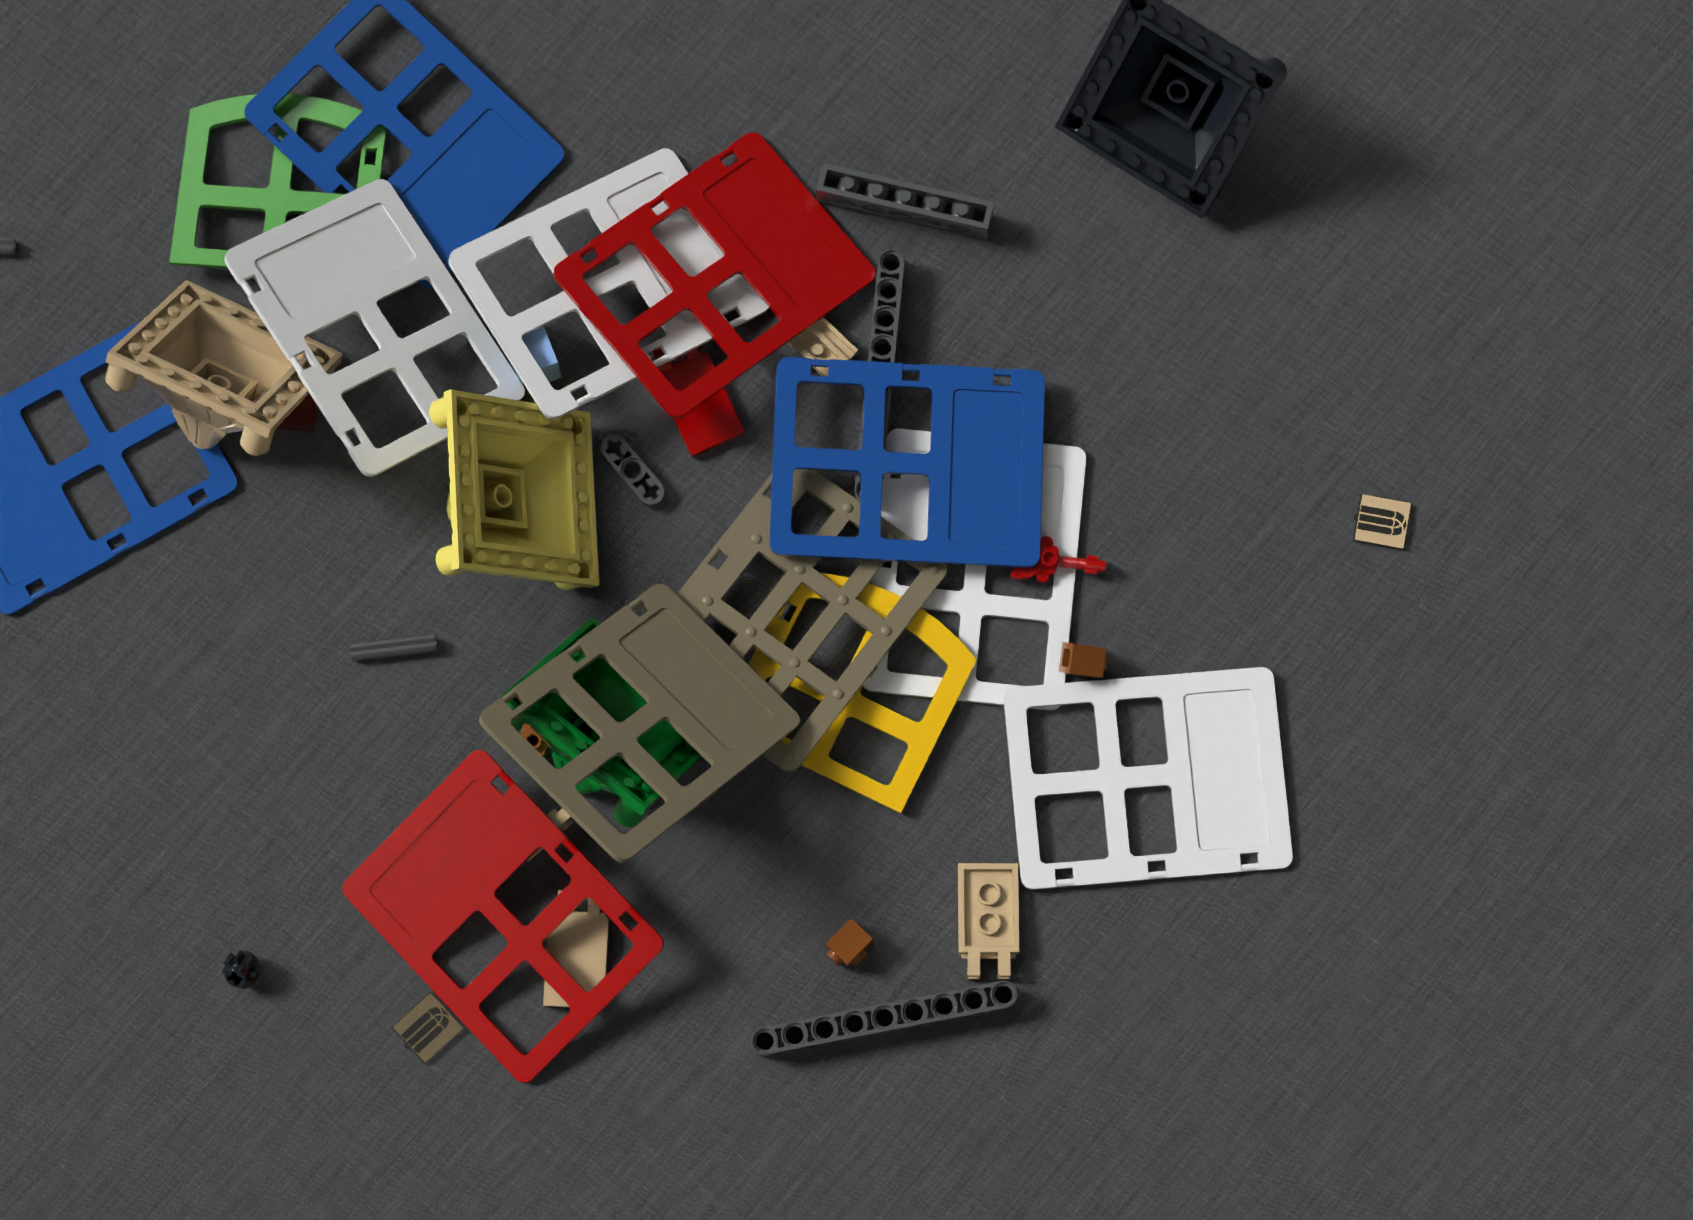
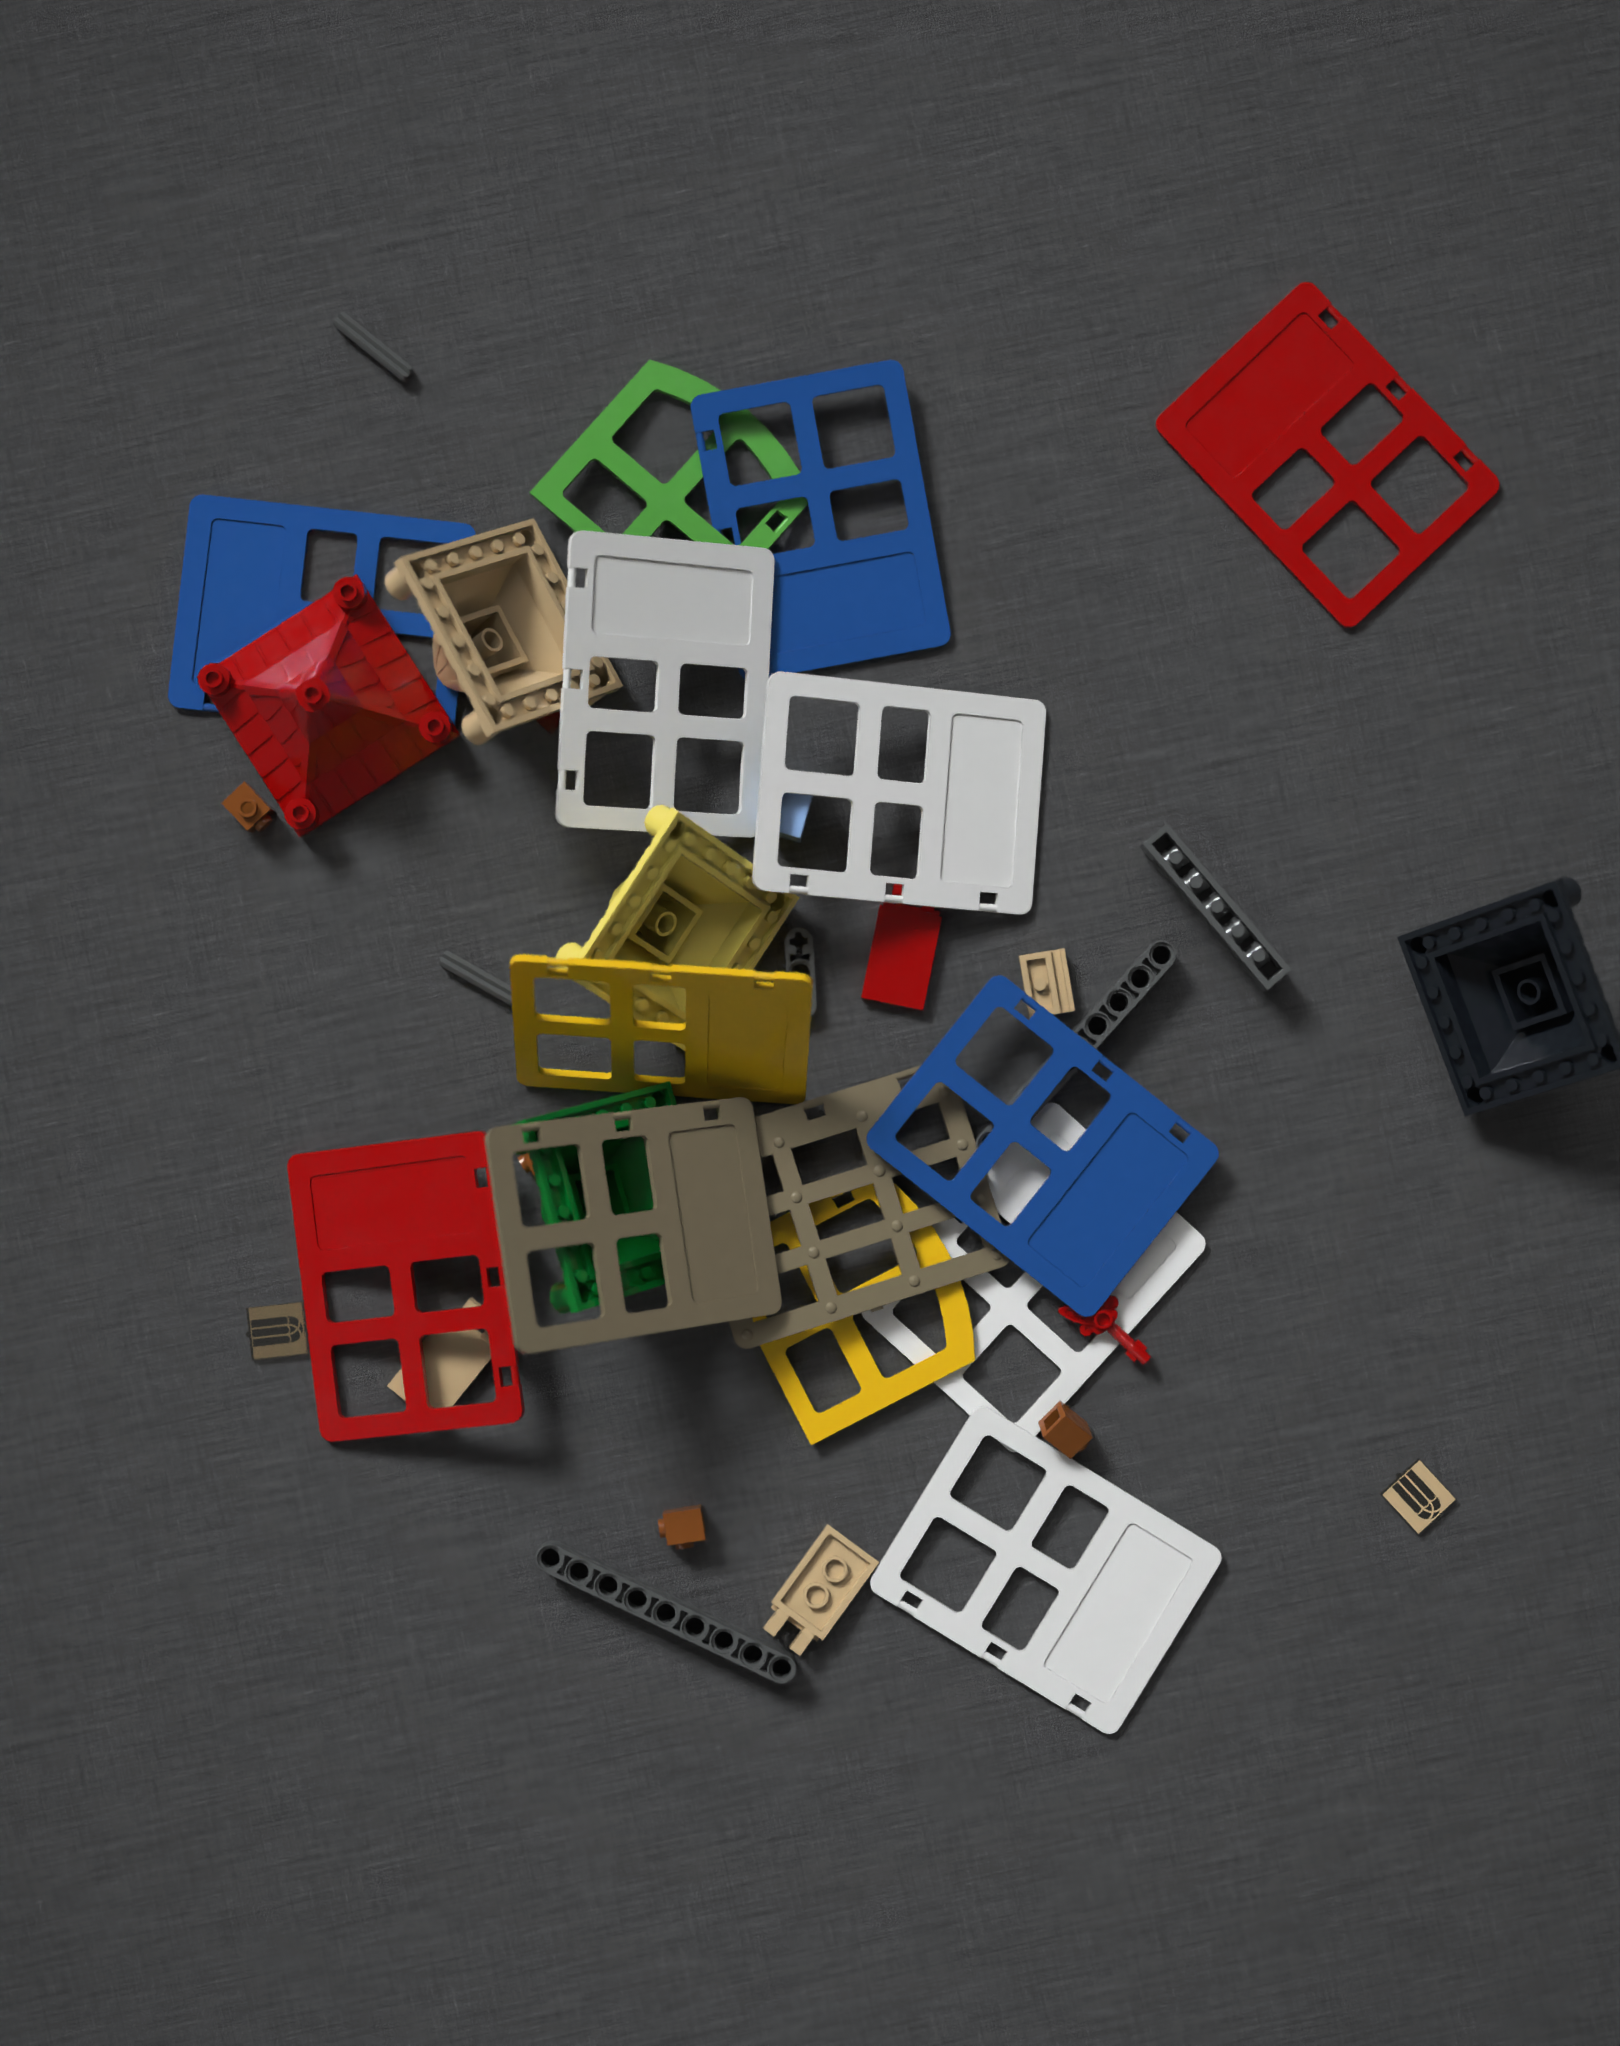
camera: 40 degrees right, 10 degrees up
(121, 646) = (249, 808): none -> dark orange brick
(128, 528) = (328, 706): none -> red piece
(241, 969) = (153, 1168): black gear -> none
(619, 534) = (736, 1032): none -> yellow door
(768, 234) = (1072, 849): red door -> none

